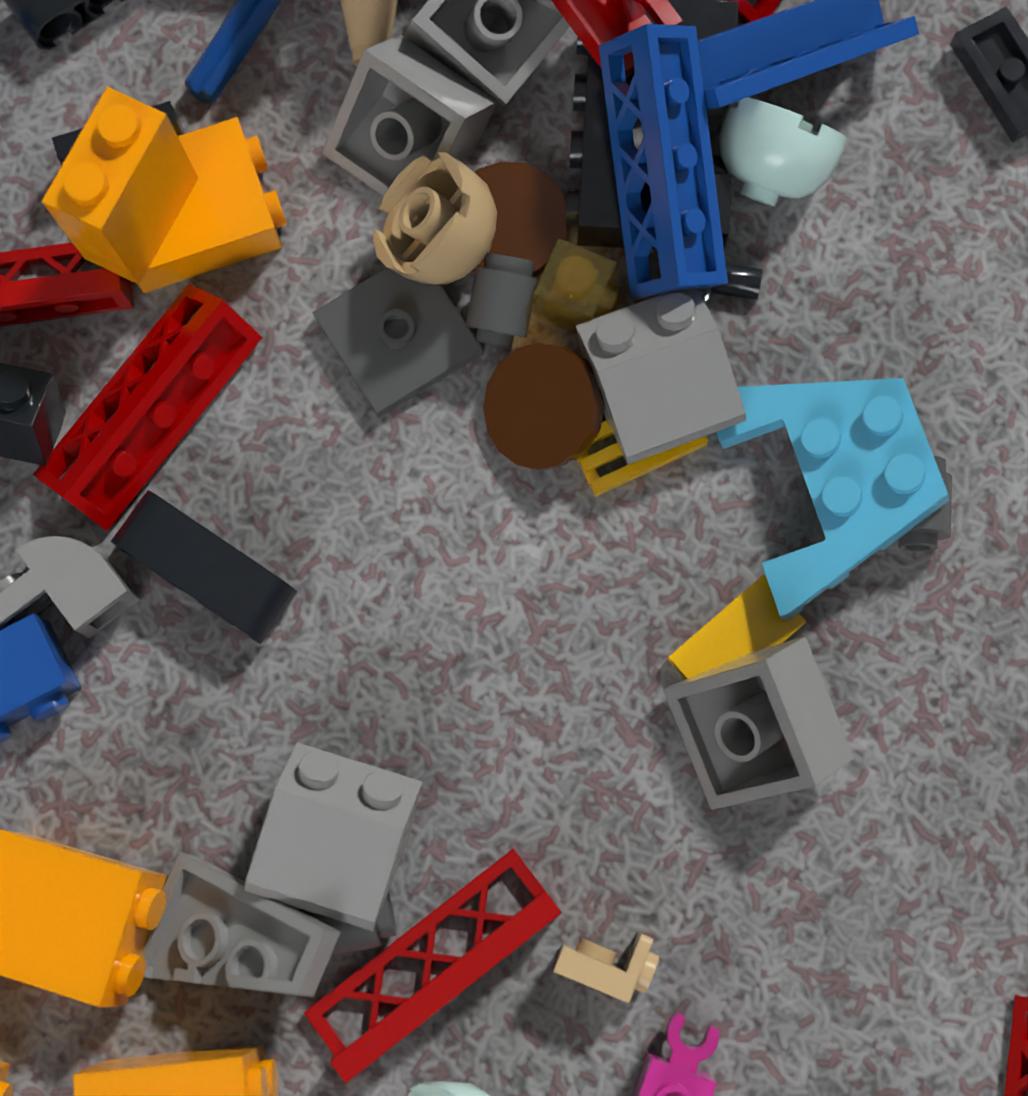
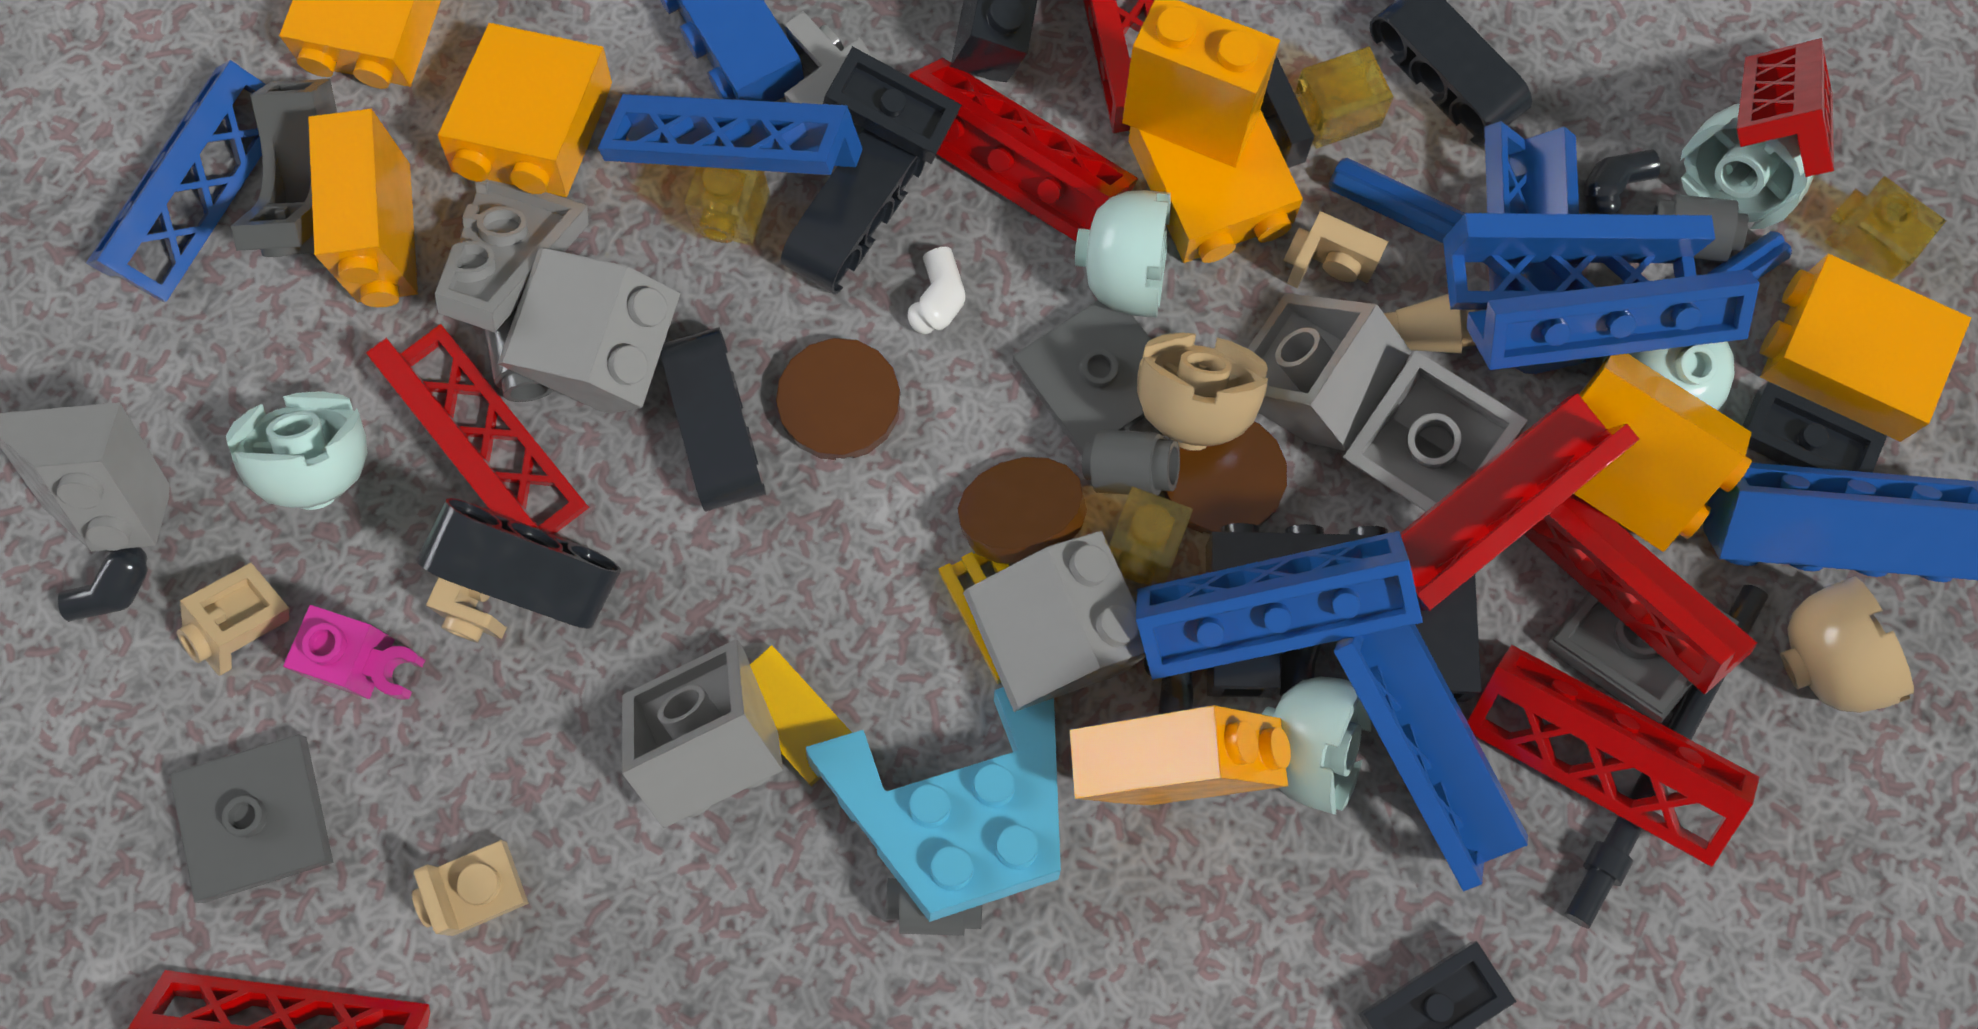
camera: 85 degrees right, 5 degrees down
(103, 513) = (893, 104): none -> black plate
(114, 685) = (731, 134): none -> blue fence
(123, 62) = (1343, 96): none -> clear yellow brick
(187, 696) = (727, 203): none -> clear yellow brick
(282, 285) = (1127, 251): none -> light aqua cylinder
(287, 90) = (1341, 247): none -> tan bracket
(305, 479) = (944, 295): none -> white arm
(411, 589) = (838, 399): none -> reddish brown tile
(430, 713) = (711, 419): none -> black beam
(591, 904) = (518, 563): none -> black beam
(807, 260) = (1179, 756): none -> light orange brick
(907, 957) = (468, 890): none -> tan bracket

